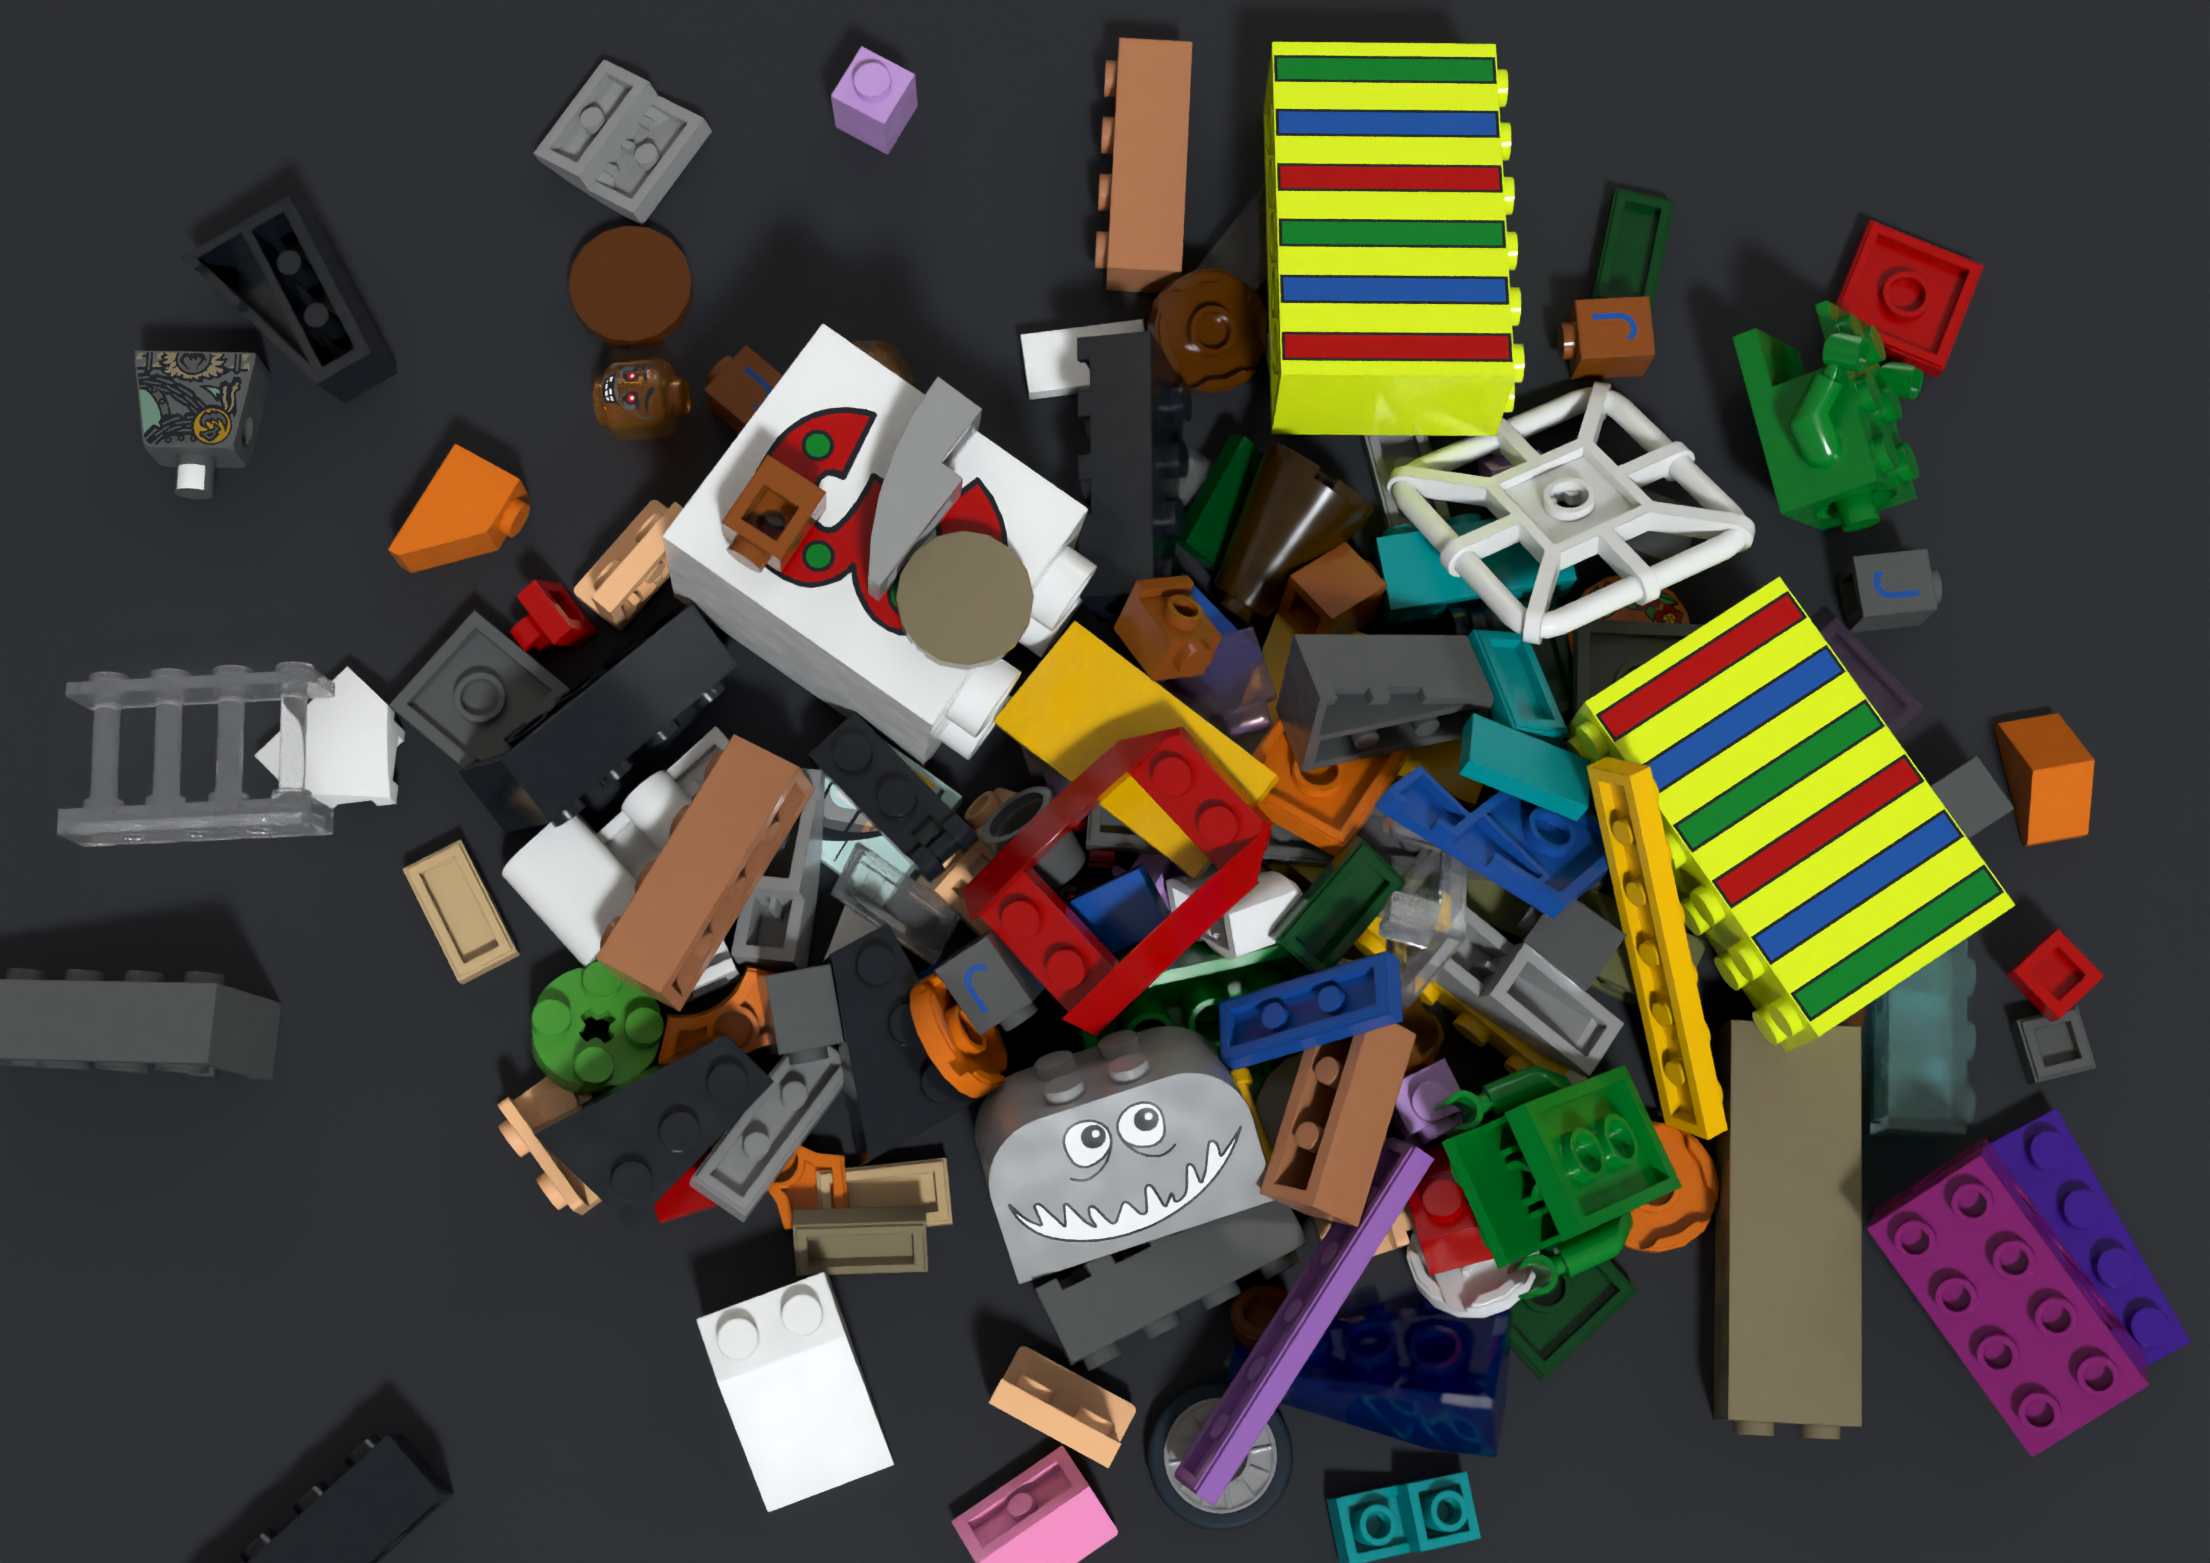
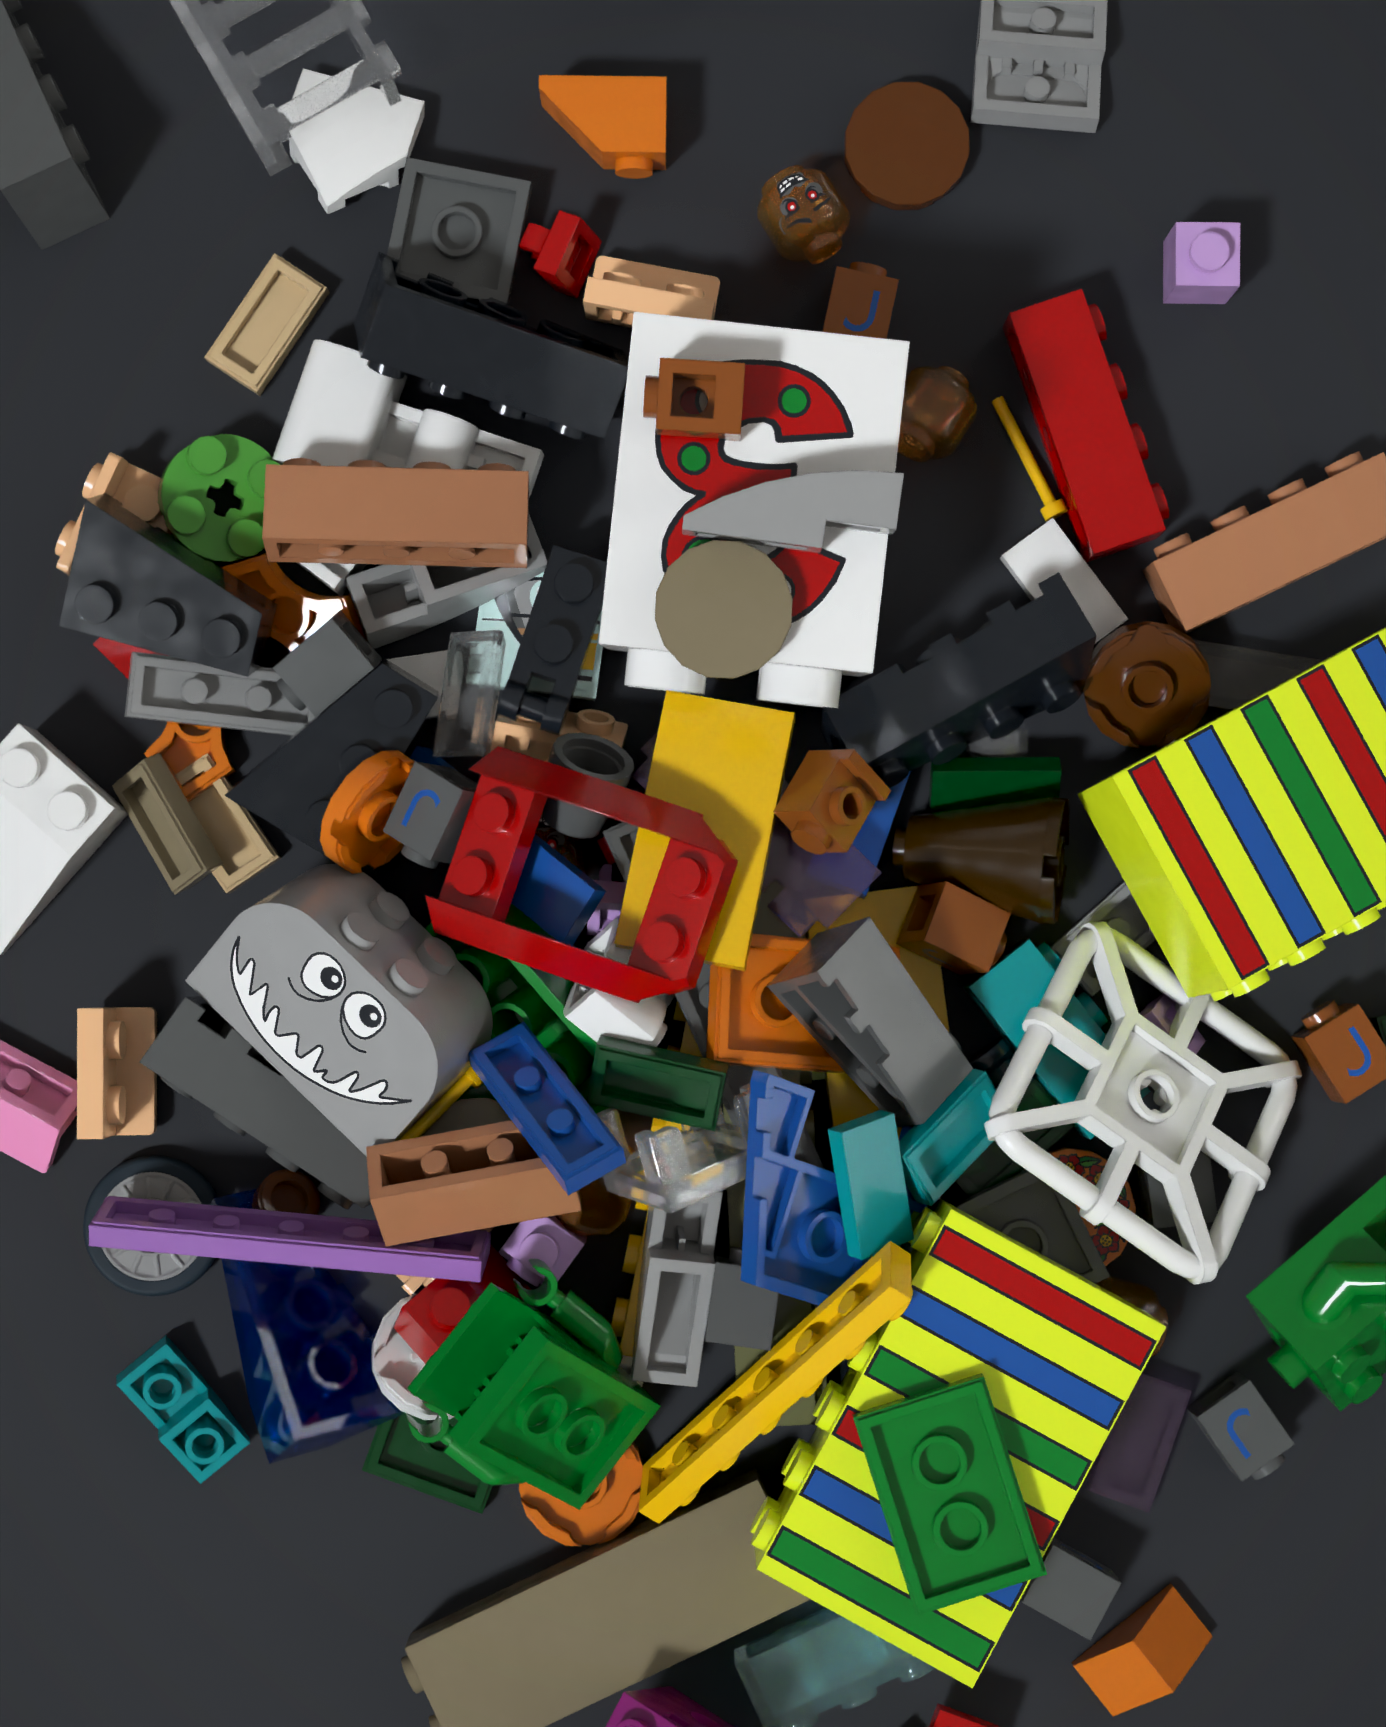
camera: 65 degrees right, 10 degrees up
(957, 266) = (1085, 425): none -> red brick
(1011, 331) = (1052, 507): none -> yellow piece
(1835, 832) = (949, 1494): none -> green tile

